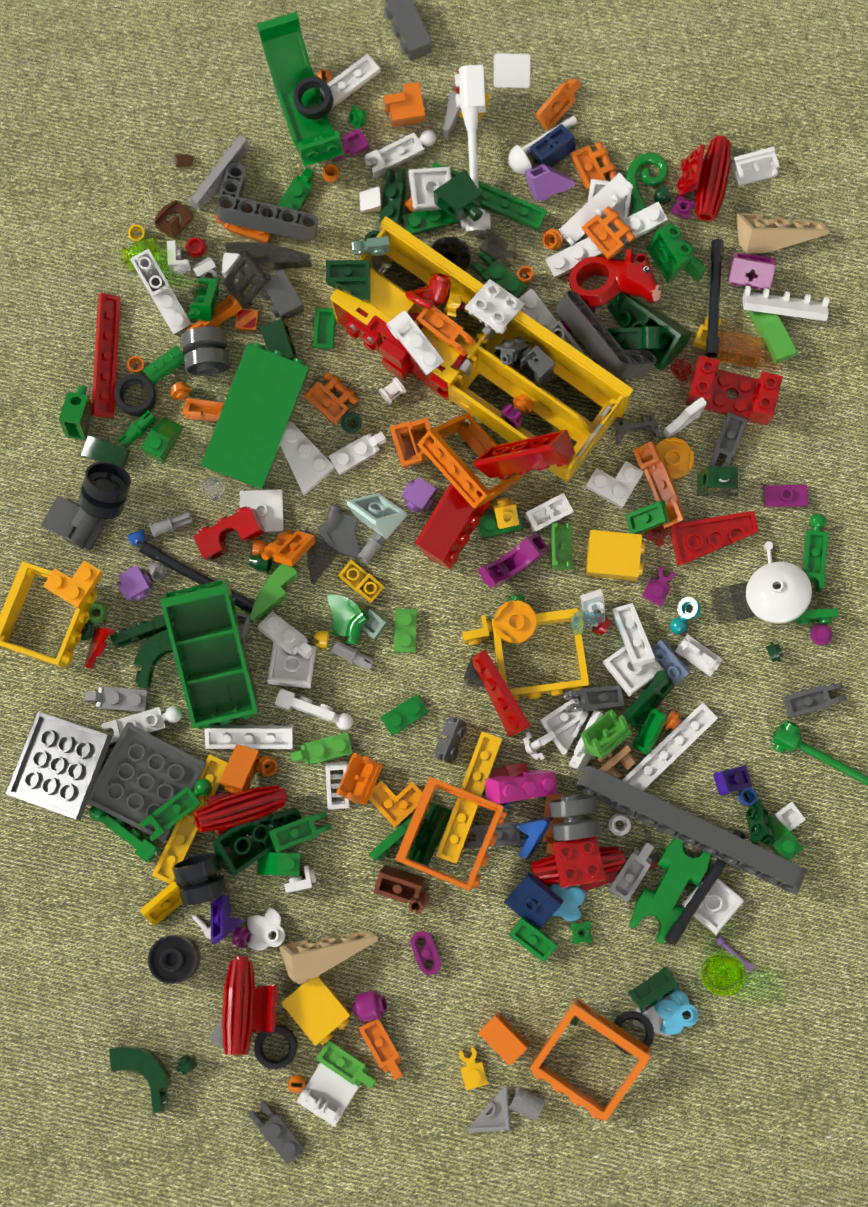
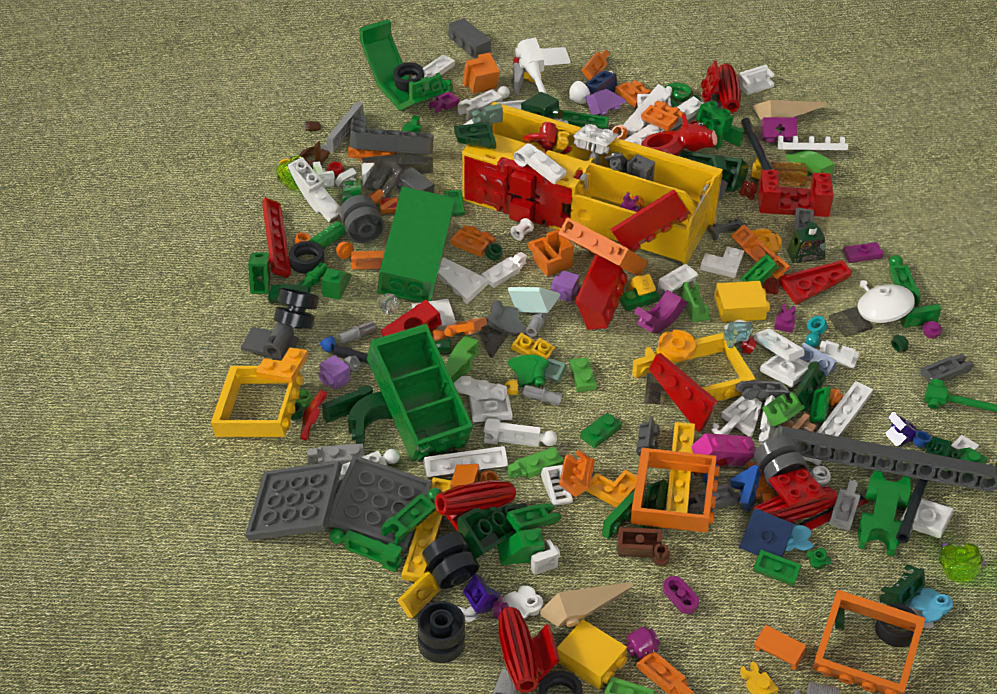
camera: 15 degrees left, 35 degrees down
(330, 173) = (433, 118): orange hinge -> none
(444, 329) = (563, 153): orange hinge -> none
(688, 416) = (766, 210): white tile -> none

